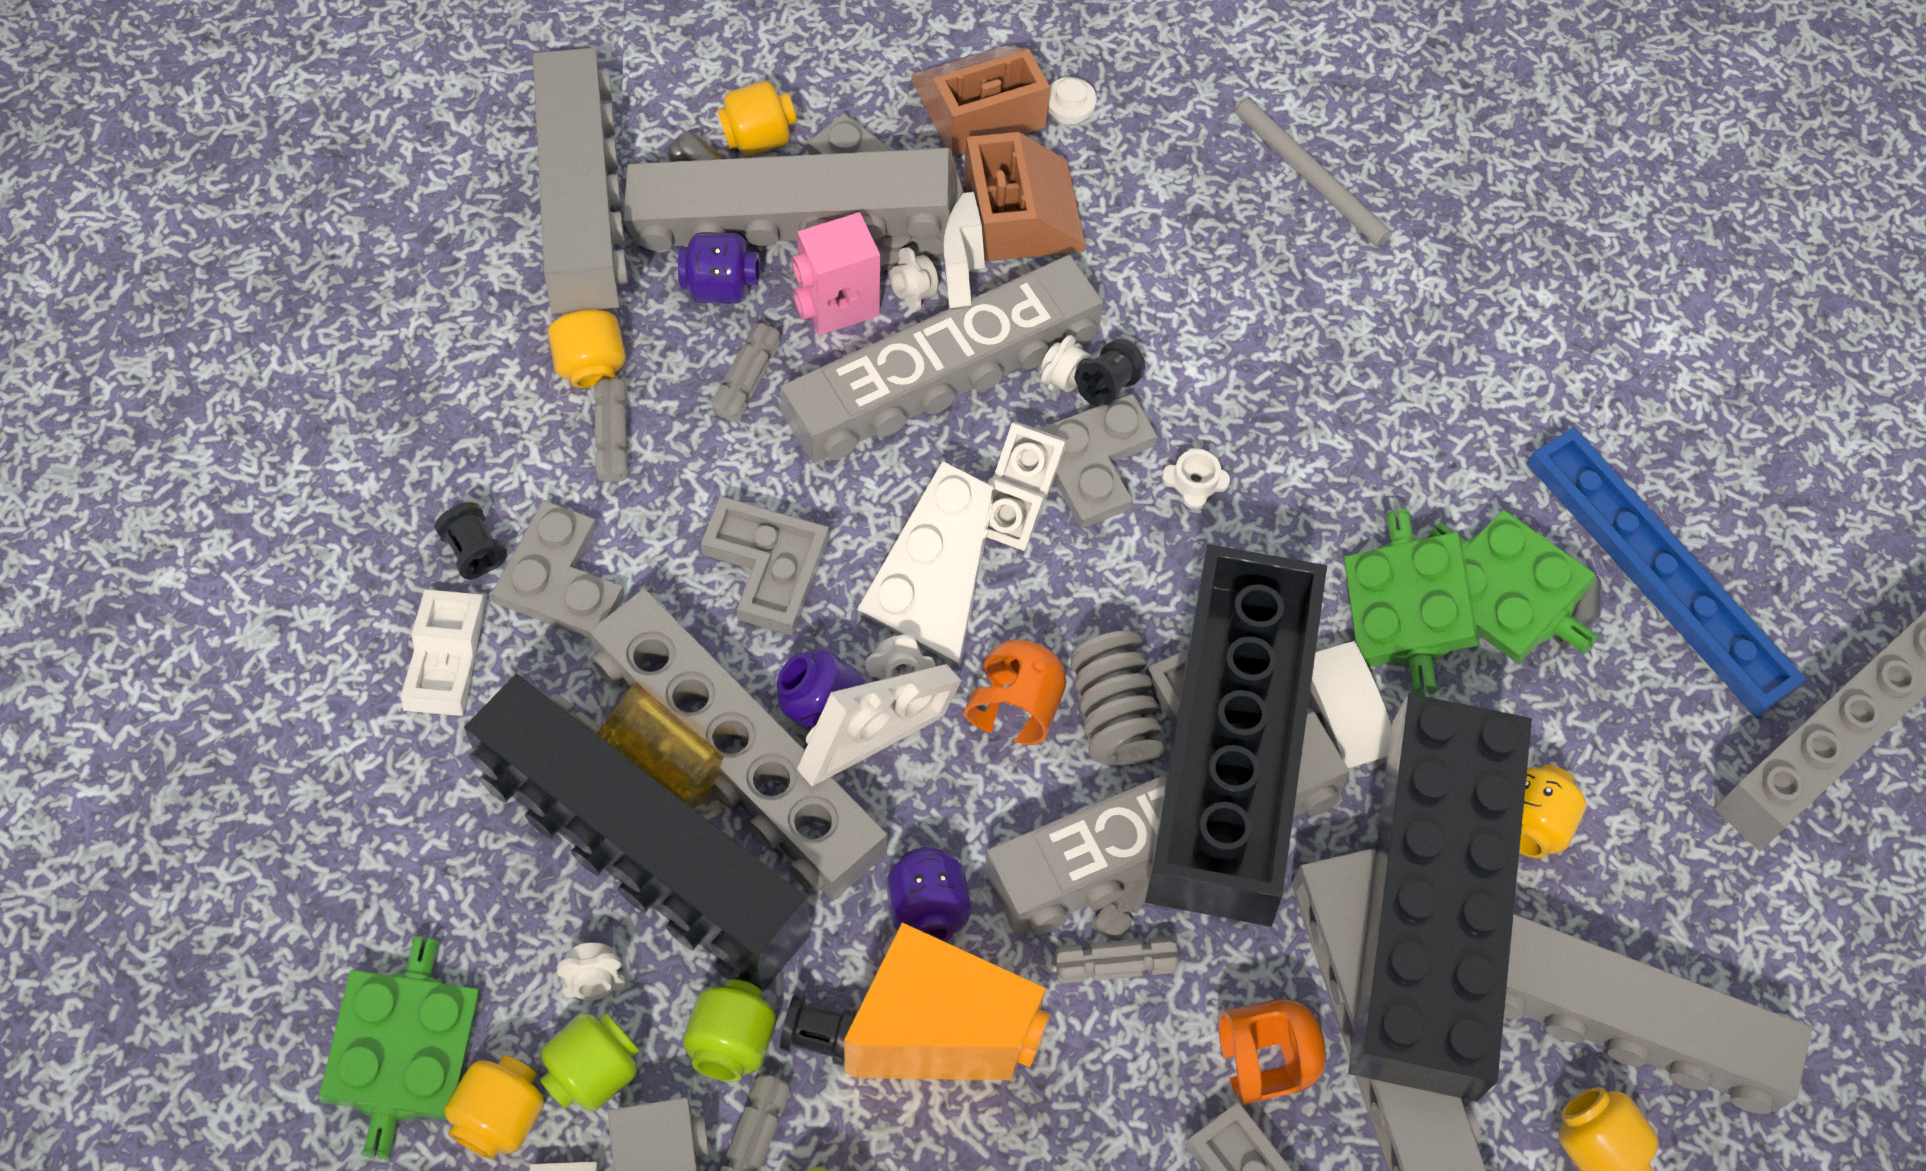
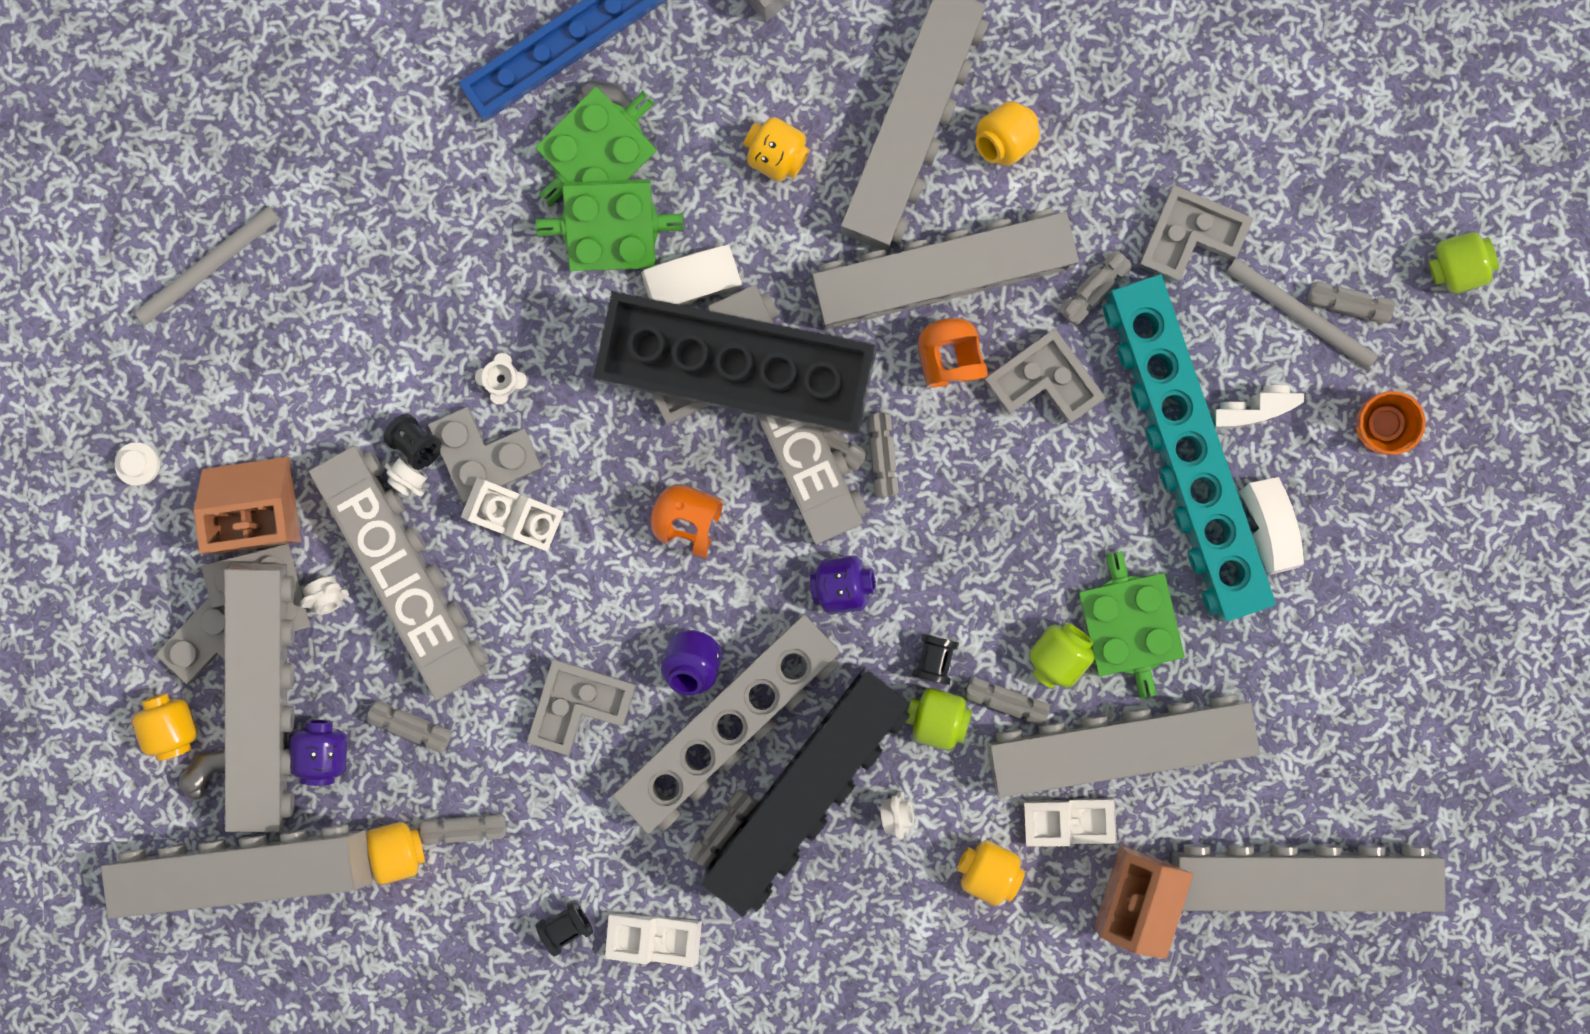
camera: 80 degrees left, 25 degrees up
(399, 1046) = (946, 940): bright green plate -> none
(544, 577) = (590, 872): light grey plate -> none
(588, 1062) = (961, 812): lime head -> none
(662, 746) = (742, 778): clear yellow slope -> none
(837, 274) = (331, 658): bright pink brick -> none
(874, 717) = (719, 622): white wing -> none
(894, 652) = (663, 605): white plate -> none
(934, 565) = (583, 579): white wing -> none
(943, 1016) = (936, 574): light orange slope -> none
(962, 249) = (307, 558): white slope -> none
(984, 95) = (137, 538): nougat slope -> none
(1110, 700) = (693, 448): light grey piece -> none
(1442, 899) = (854, 229): black brick -> none

